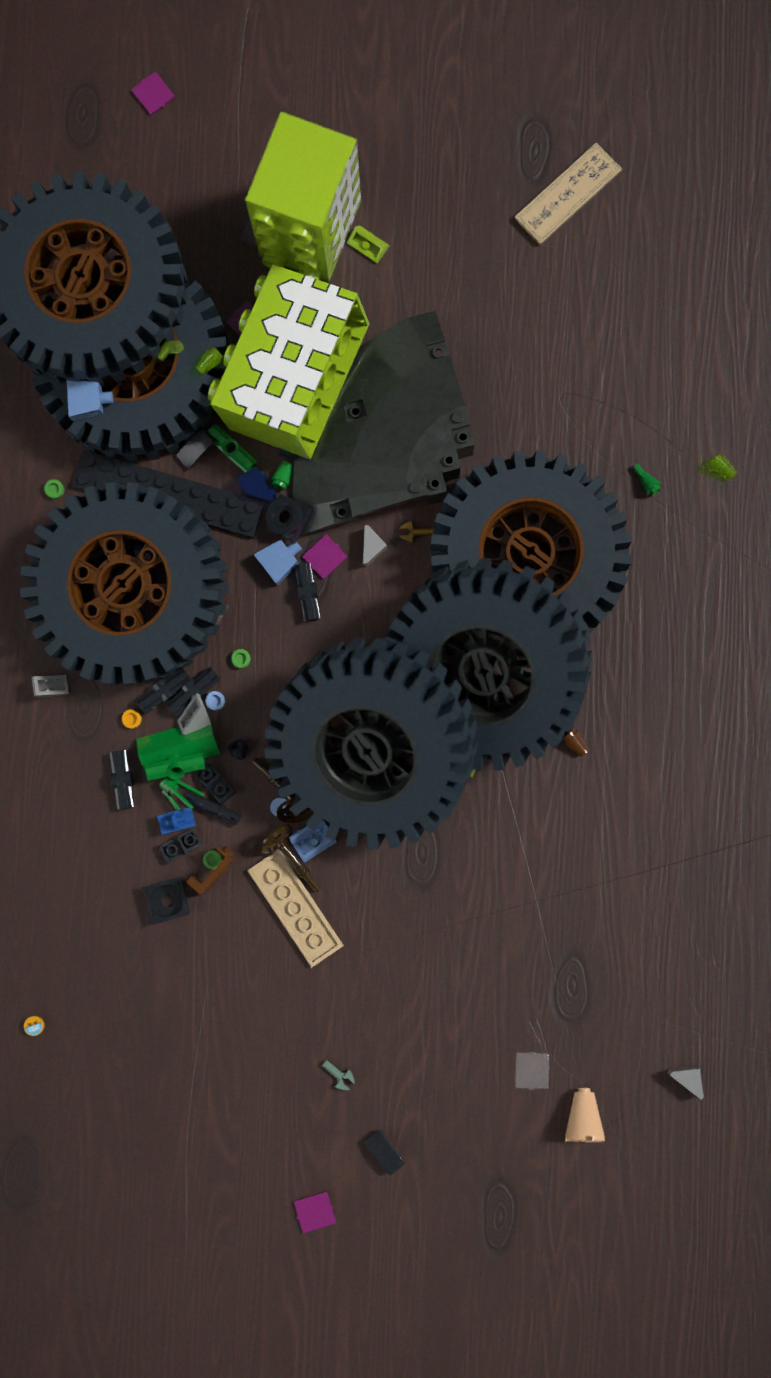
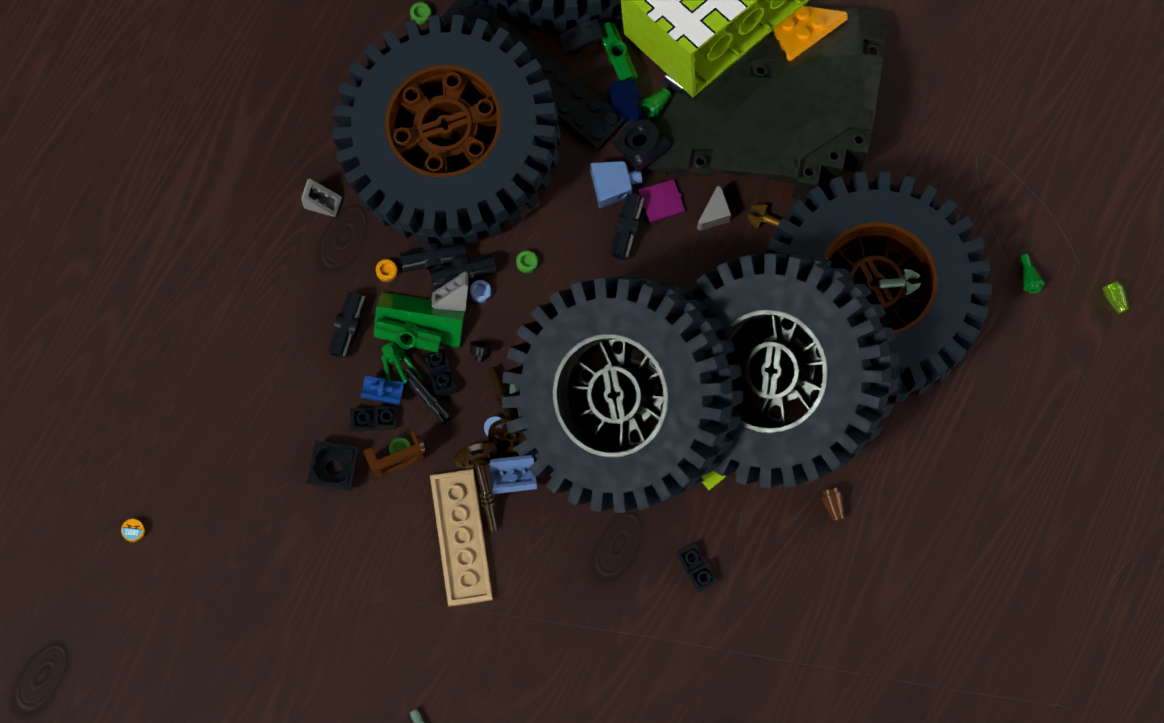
camera: 15 degrees right, 10 degrees down
(375, 358) = (806, 28): none -> light orange wing
(491, 844) = (696, 567): none -> black slope
(551, 544) = (901, 282): none -> sand green bar

